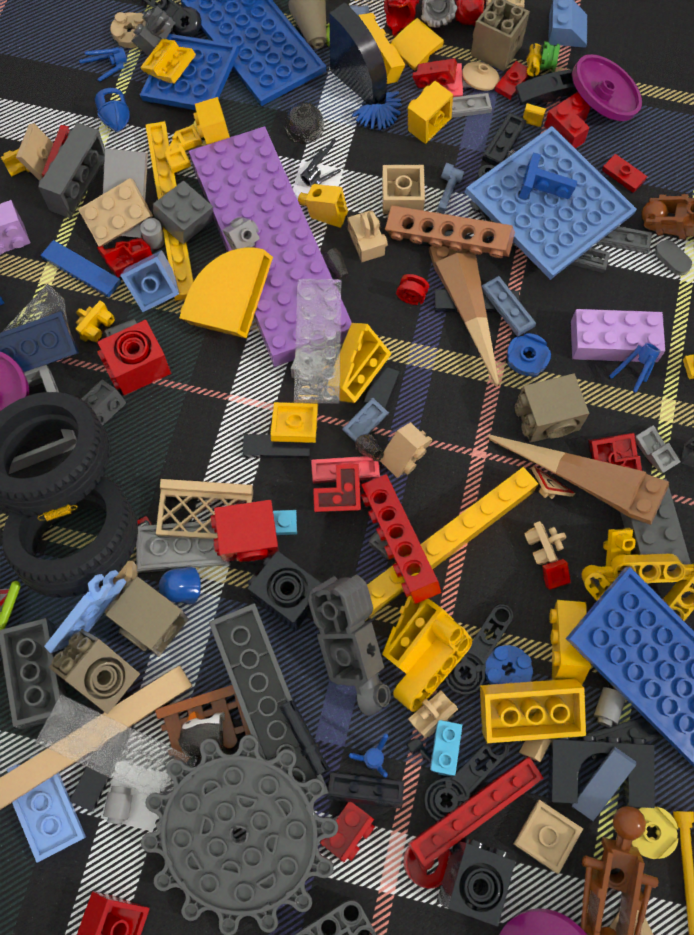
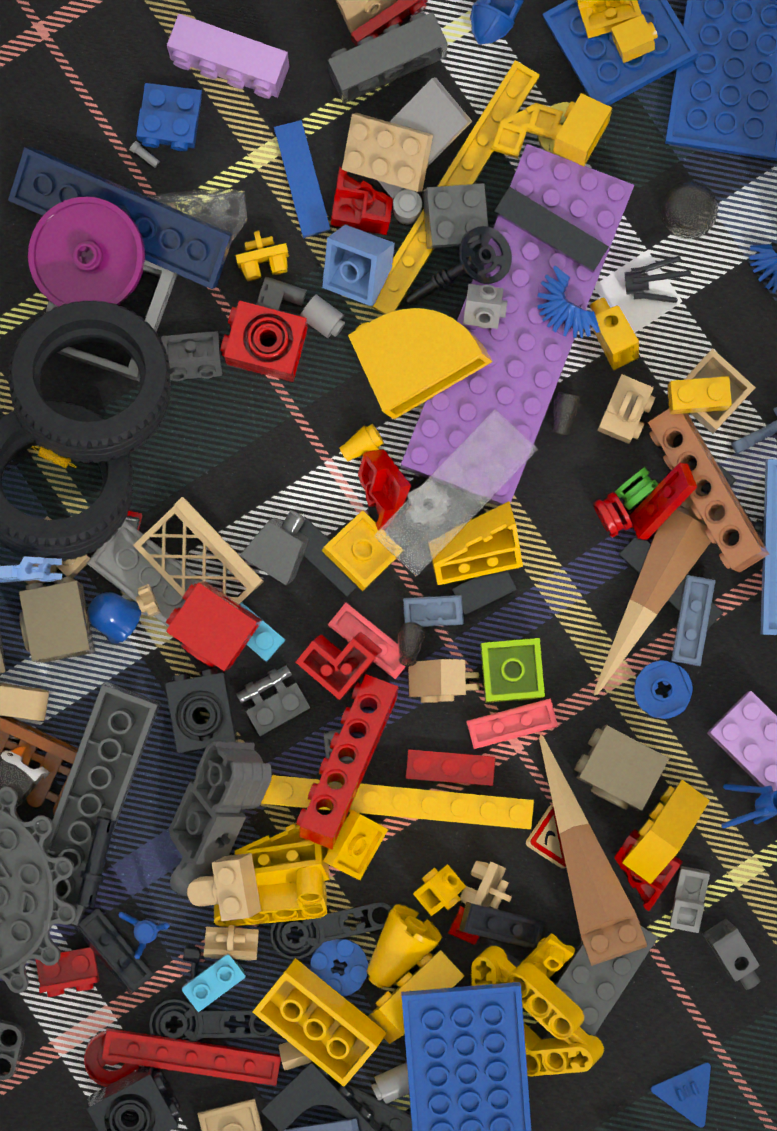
camera: 45 degrees right, 15 degrees up
(159, 322) = (323, 317): none -> light grey brick
(193, 555) = (147, 601): none -> tan plate
(197, 61) = (634, 38): none -> yellow brick
(215, 219) = (476, 259): none -> black dish
(240, 368) = (362, 441): none -> yellow cone
(241, 174) = (551, 229): none -> black tile
(244, 460) = (278, 547): none -> dark grey torso
(273, 378) = (383, 484): none -> red slope
(286, 204) = (564, 310): none -> blue hair
(328, 553) = (278, 708): none -> dark grey plate
(399, 185) = (699, 395): none -> yellow piece
(403, 674) = (231, 887): none -> tan brick
(414, 264) = (639, 490): none -> bright green wheel
(433, 254) = (663, 501): none -> red plate
(440, 411) = (512, 670): none -> lime brick
(451, 585) = (355, 845): none -> yellow plate
(457, 497) = (450, 767): none -> red plate
(467, 444) = (512, 723): none -> coral tile
(521, 567) = (439, 890): none -> yellow brick
(533, 621) = (401, 946): none -> yellow cone
(576, 554) = (501, 925): none -> black tile
(612, 419) = (666, 831): none -> yellow wedge

